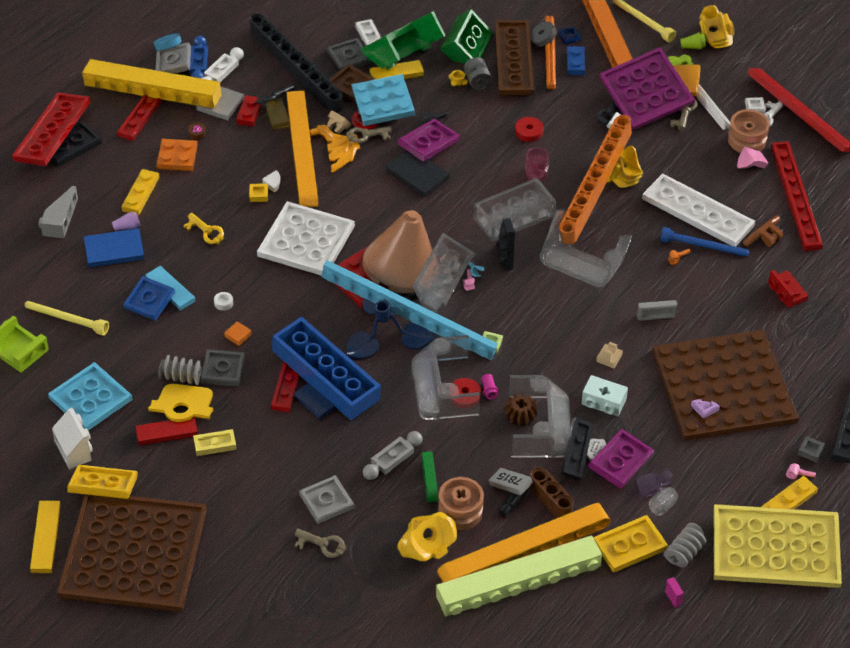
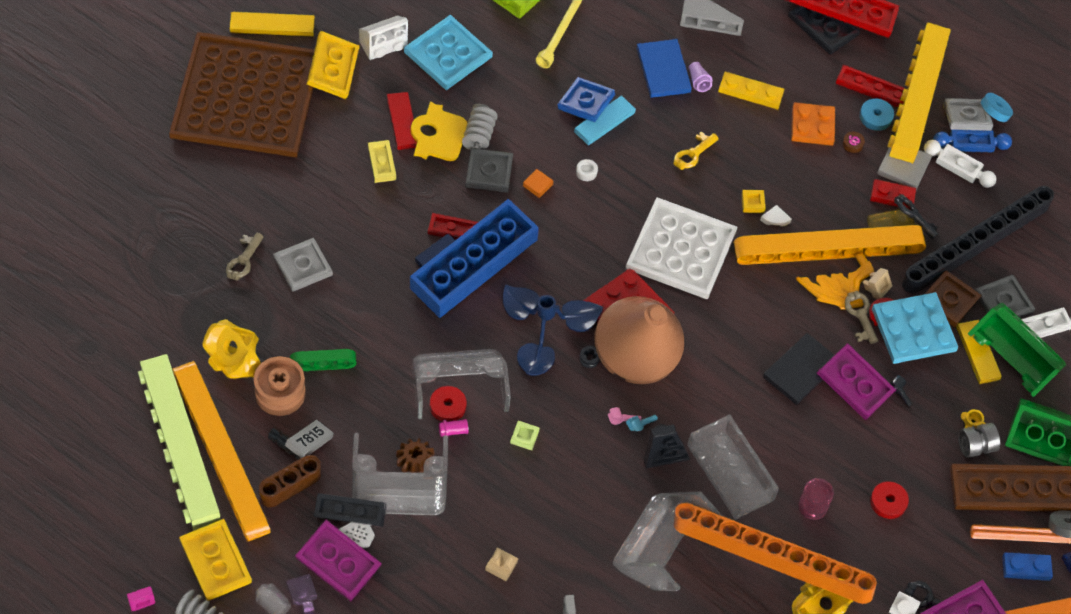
camera: 85 degrees right, 10 degrees up
(168, 116) = (879, 107): none -> dark azure piece
(392, 455) = (356, 325): light grey plate -> none
(407, 308) = (550, 345): medium azure plate -> none
(441, 273) = (617, 376): clear slope -> none
(604, 395) = (432, 561): light aqua brick -> none

